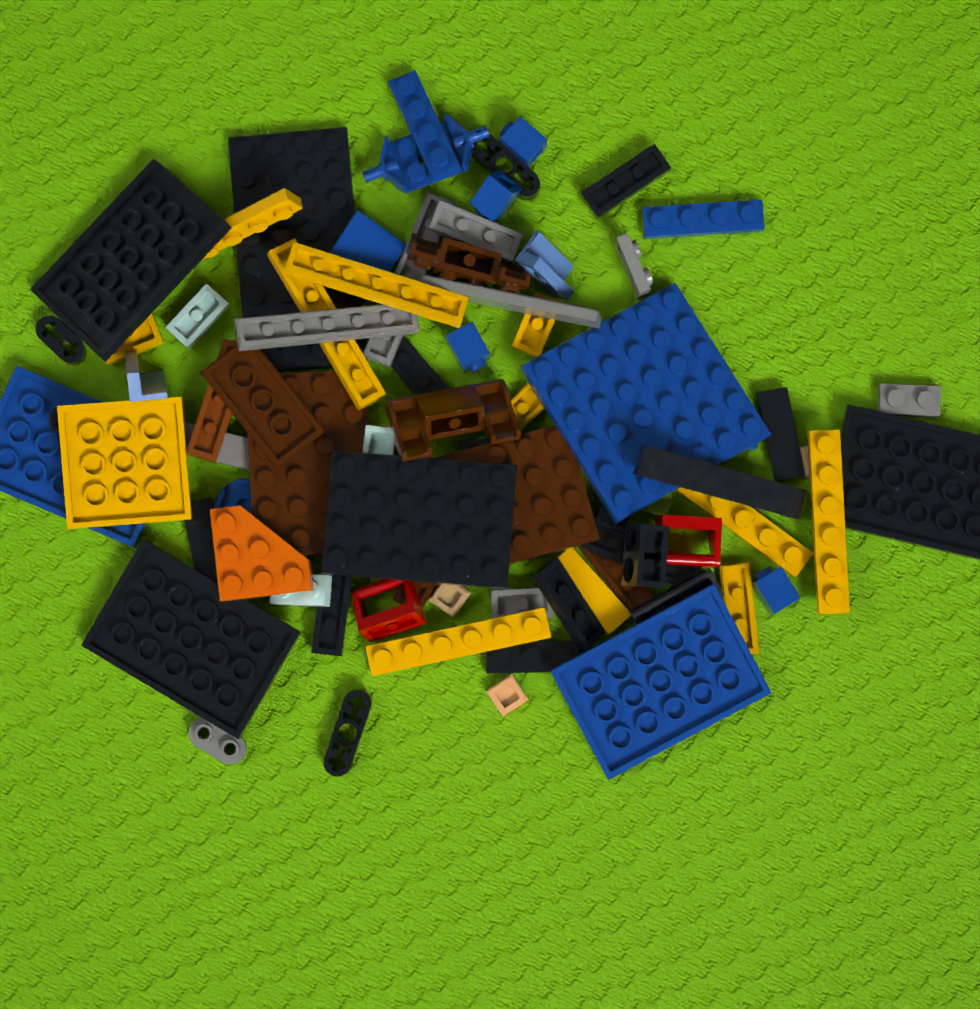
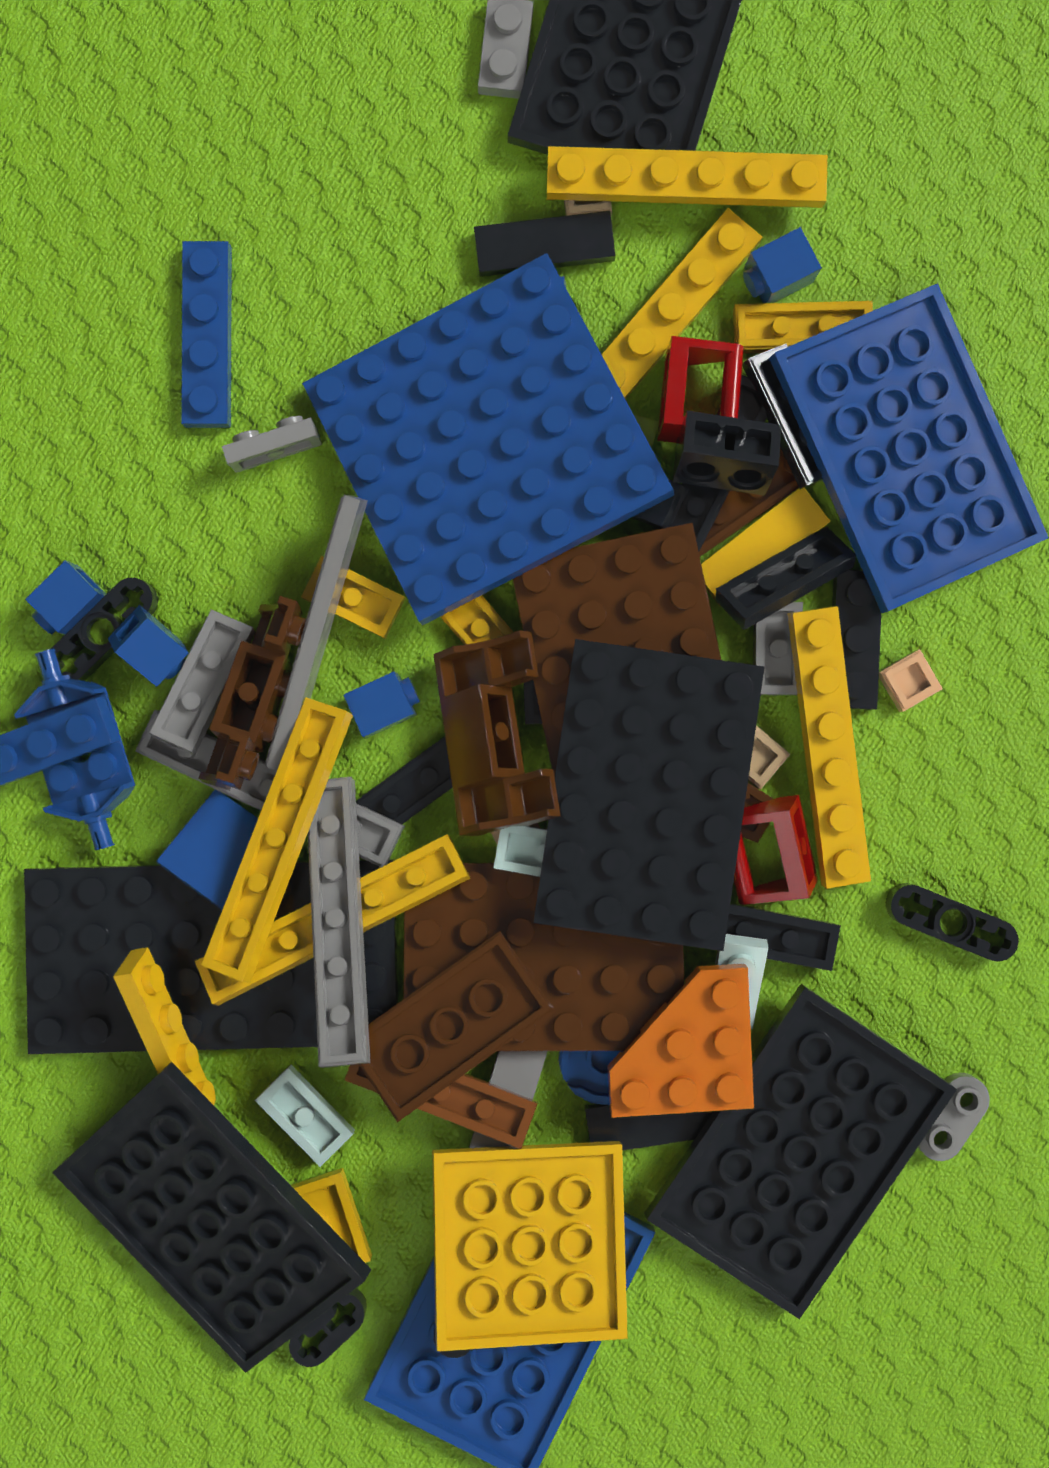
camera: 85 degrees left, 5 degrees up
(143, 385) = (408, 1210): panel -> none
(546, 265) = (263, 575): medium blue panel -> none
(625, 181) = (139, 447): black plate -> none
(719, 481) = (618, 335): black tile -> none

